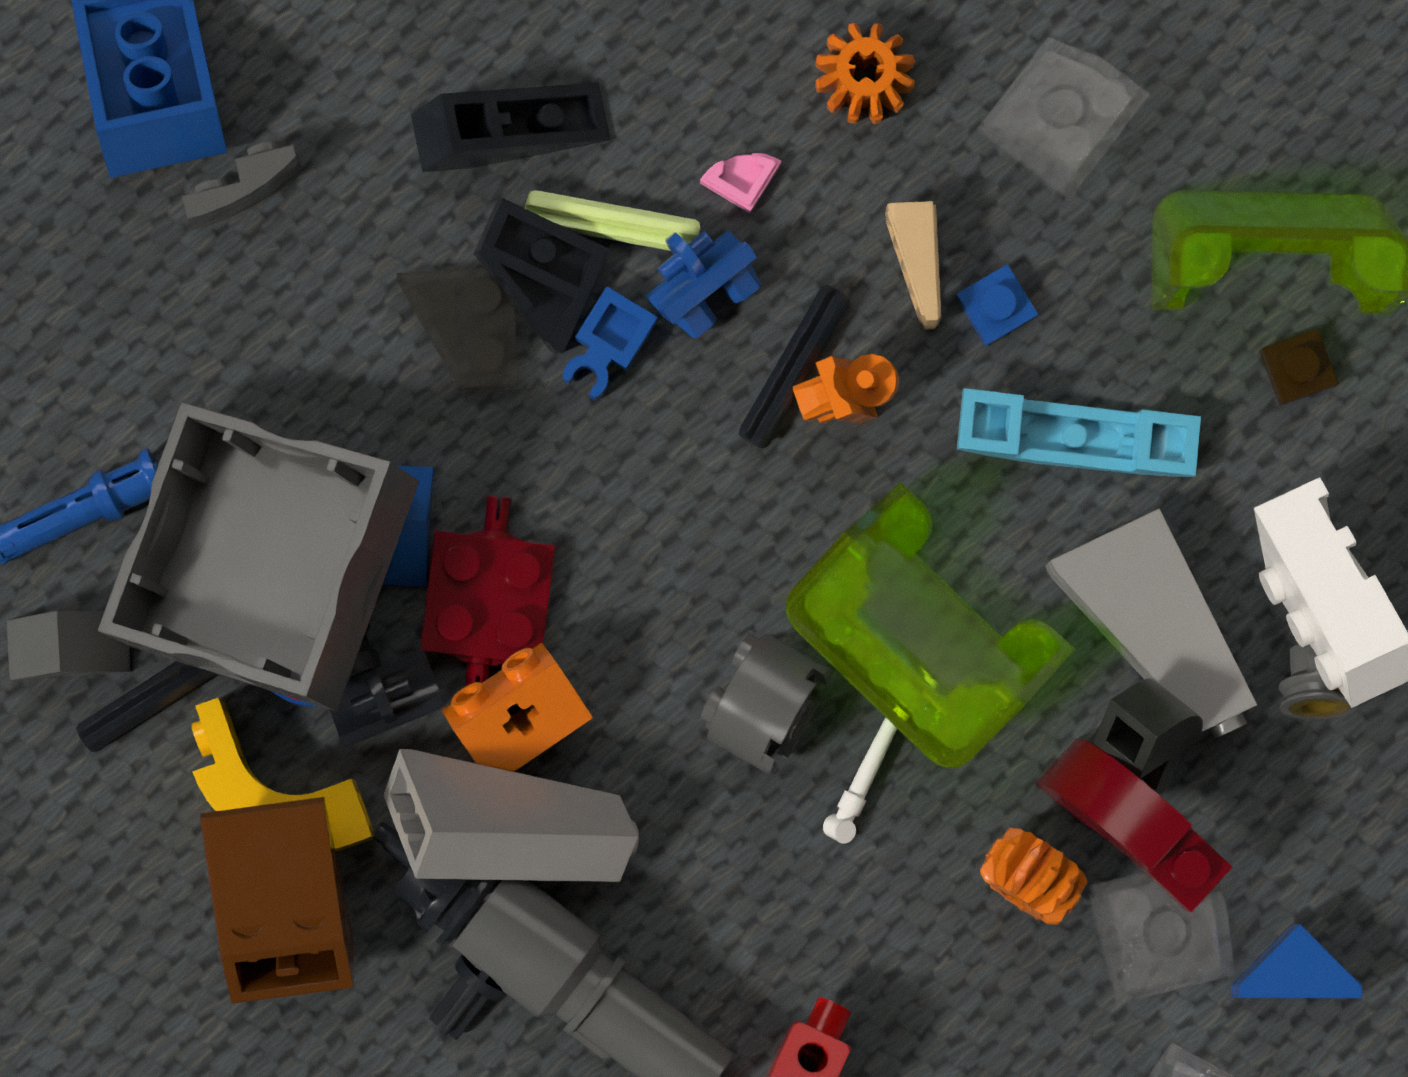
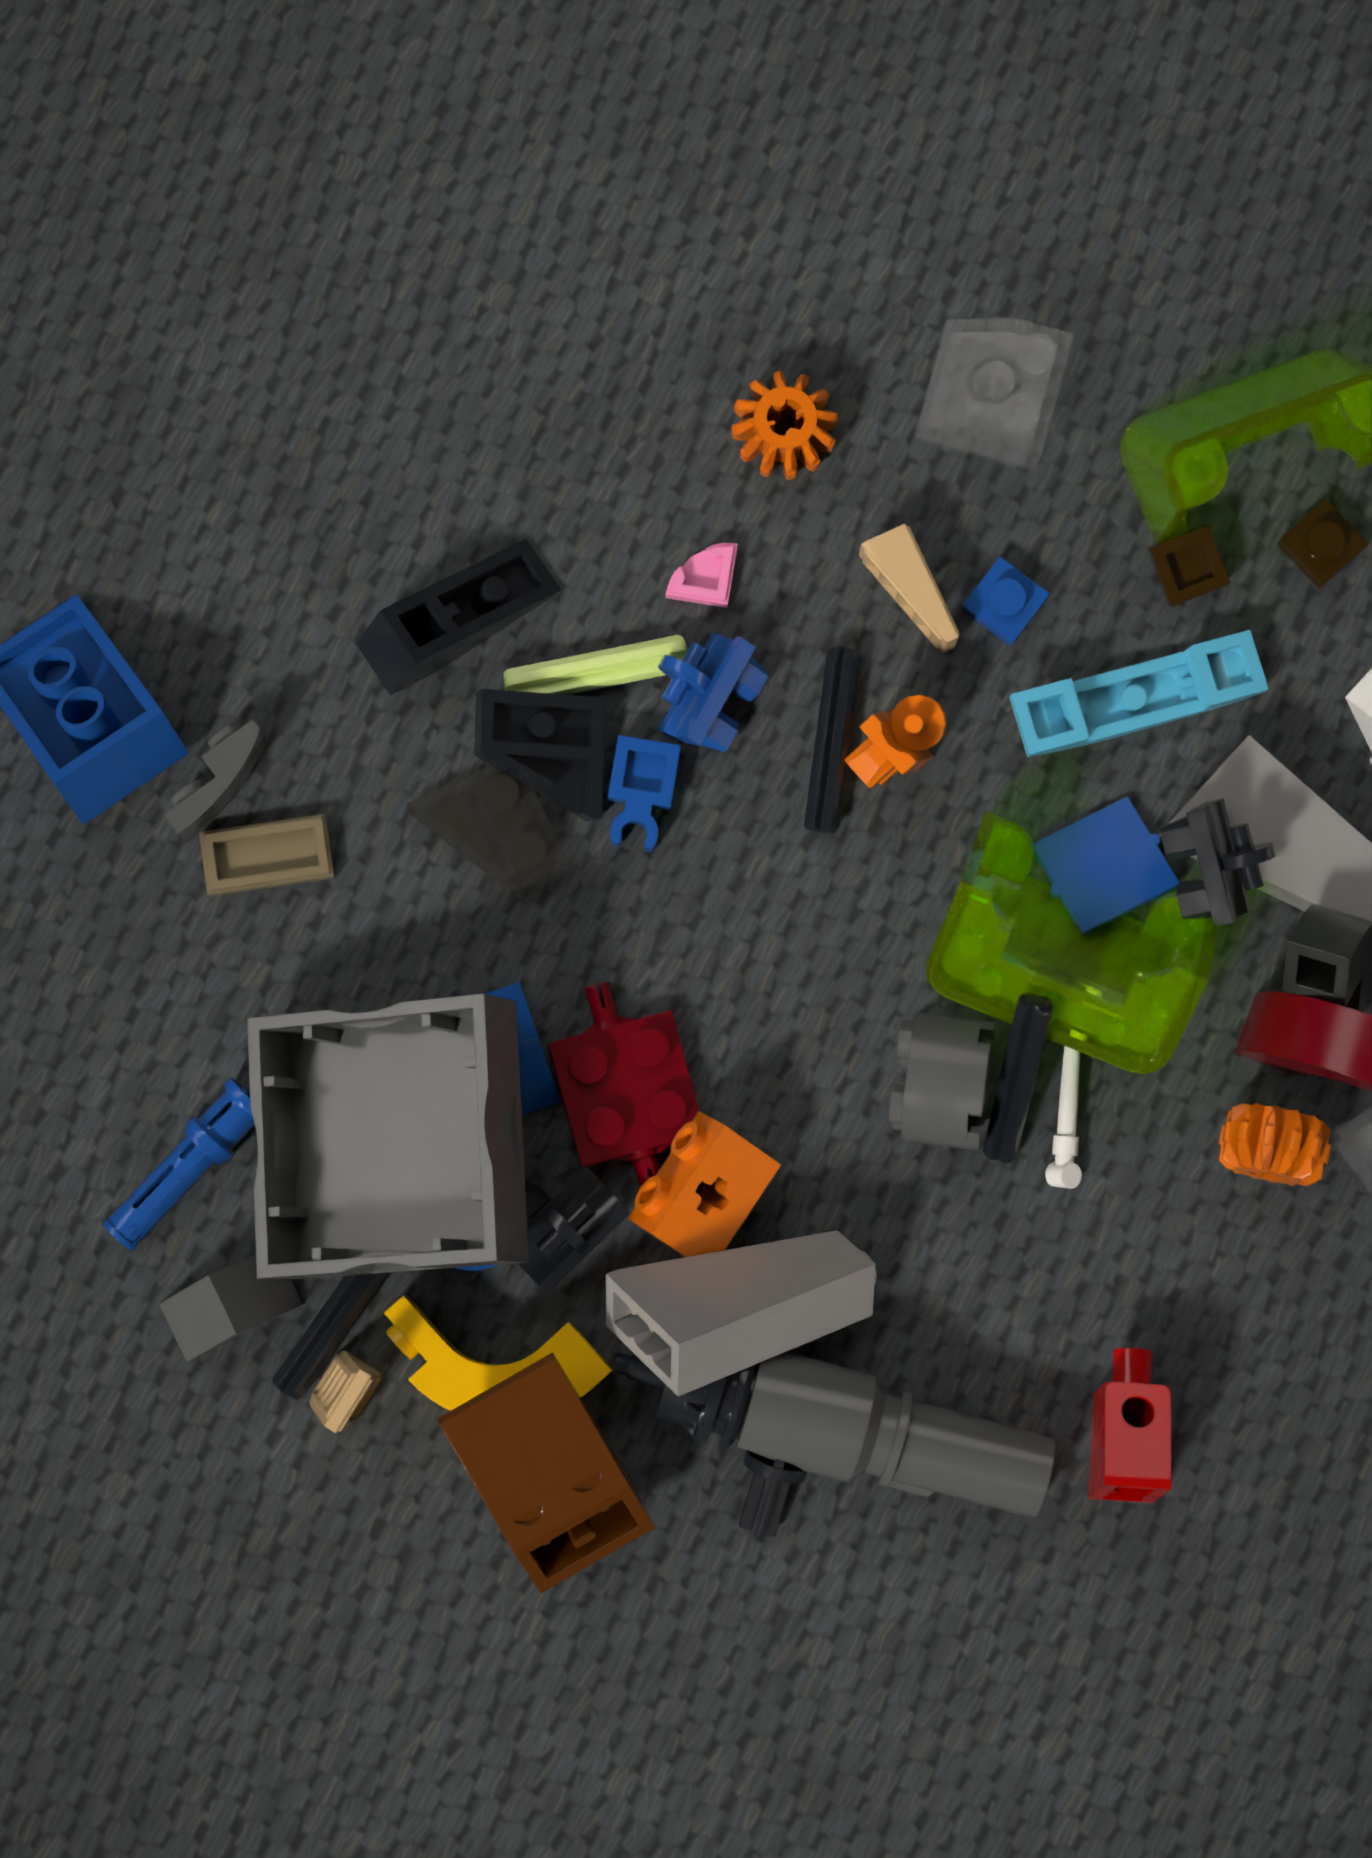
camera: 20 degrees left, 0 degrees up
(135, 761) = (344, 1391): none -> tan slope
(259, 268) = (267, 855): none -> dark tan tile
(830, 725) = (1017, 1077): none -> black axle
(987, 573) = (1105, 866): none -> blue piece
(1088, 607) = (1225, 859): none -> black hips
(1170, 338) = (1188, 565): none -> dark brown plate

